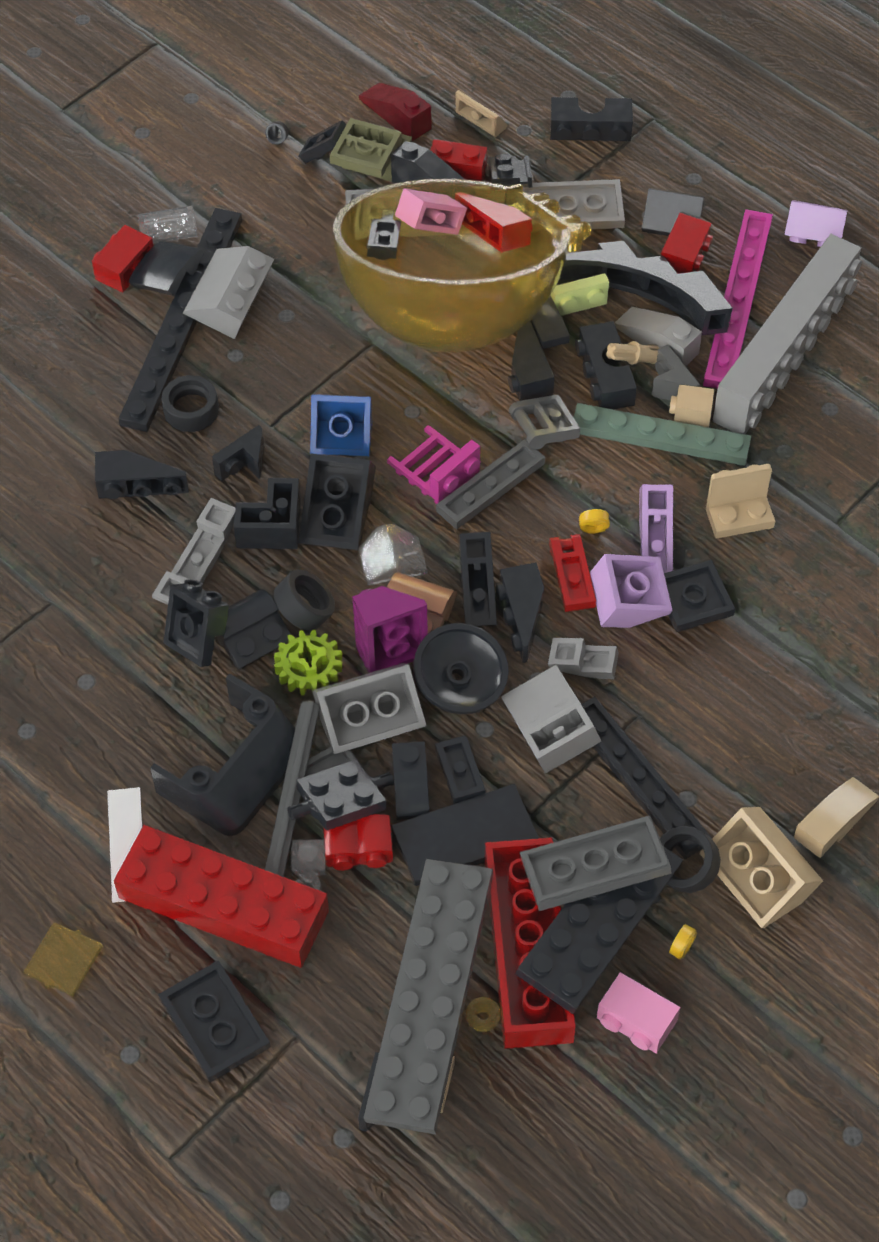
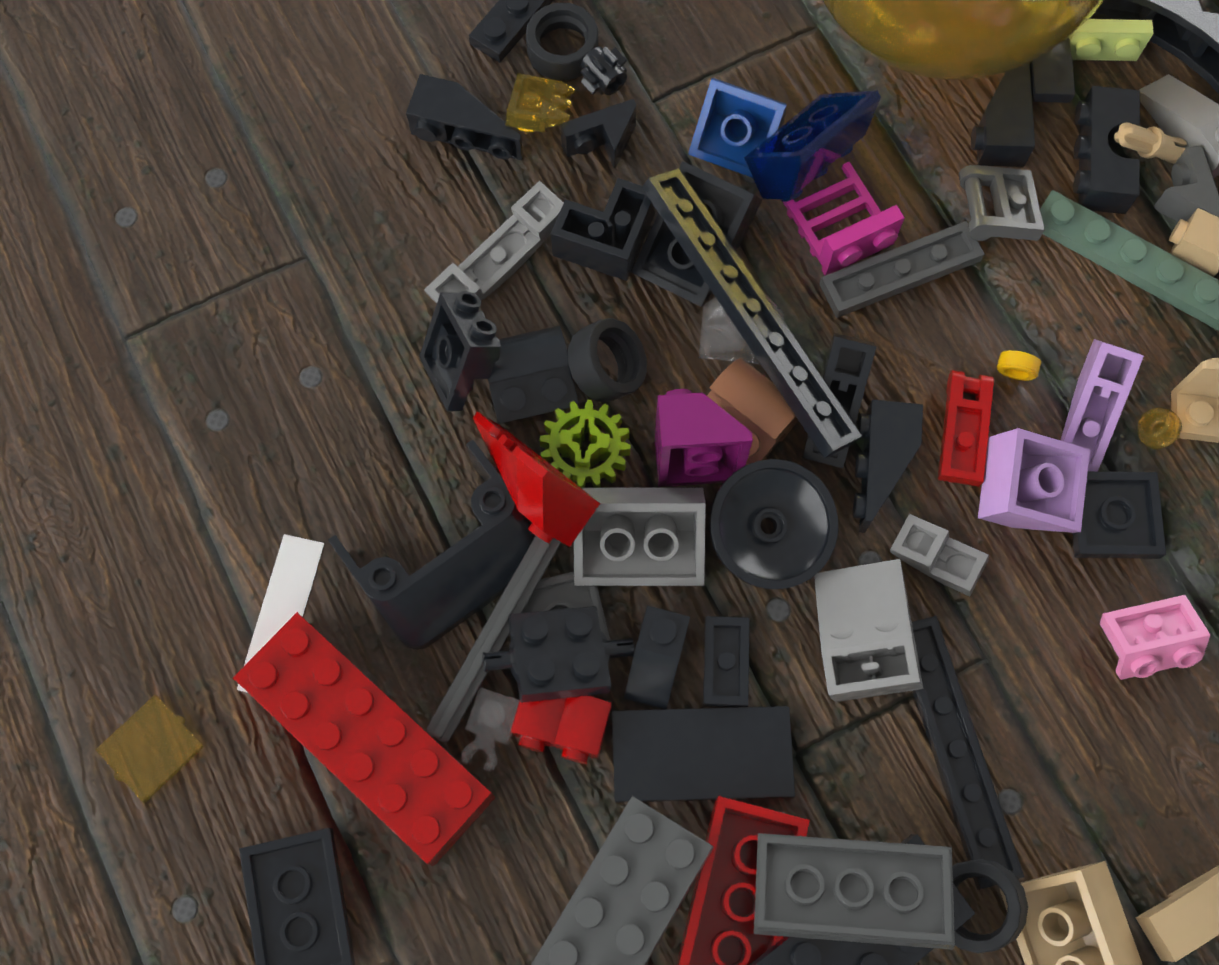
camera: 20 degrees right, 15 degrees up
(189, 448) = (538, 103): none -> clear yellow plate
(229, 414) = (603, 70): none -> black gear
(288, 683) = (538, 489): none -> red wedge
(395, 536) = (752, 313): none -> black plate
(397, 418) = (811, 143): none -> clear blue slope
(703, 532) = (1151, 426): none -> clear yellow plate
(747, 663) = (1155, 636): none -> bright pink bracket

